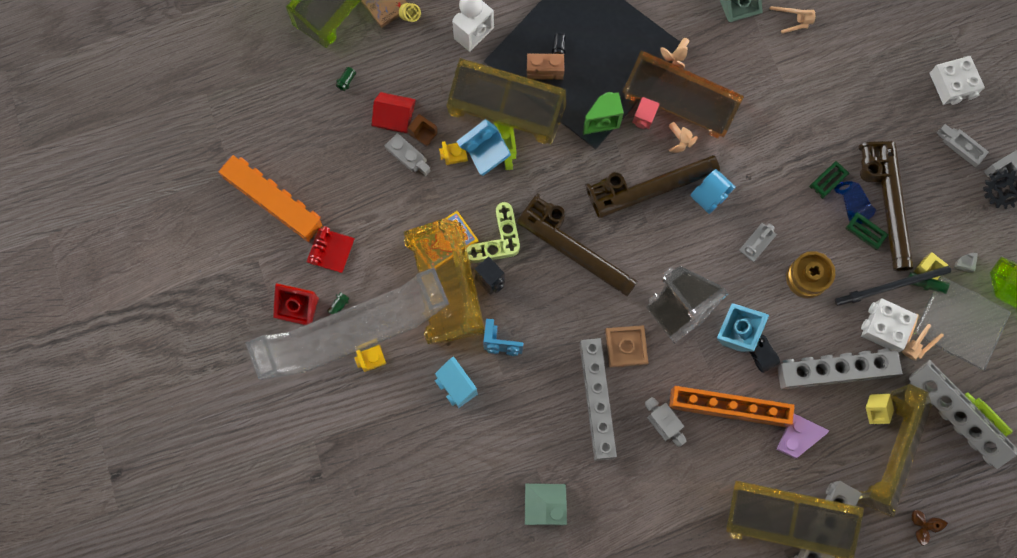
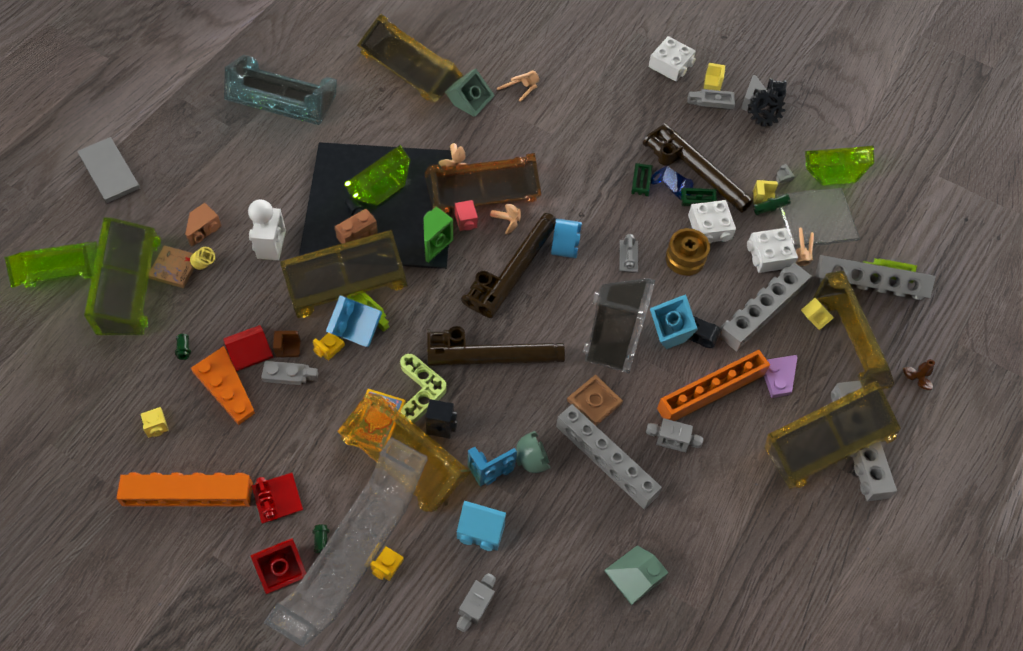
camera: 40 degrees left, 15 degrees down
(285, 128) = (154, 422): none -> light yellow bracket
(355, 132) = (222, 381): none -> orange wing
(410, 436) = (476, 602): none -> light grey piece
(540, 354) = (532, 454): none -> sand green cylinder
(598, 32) = (380, 178): none -> clear neon green wedge
(856, 296) = (731, 246): black bar -> none
(857, 262) = (713, 220): none -> white brick
(983, 124) = (714, 76): none -> light yellow panel

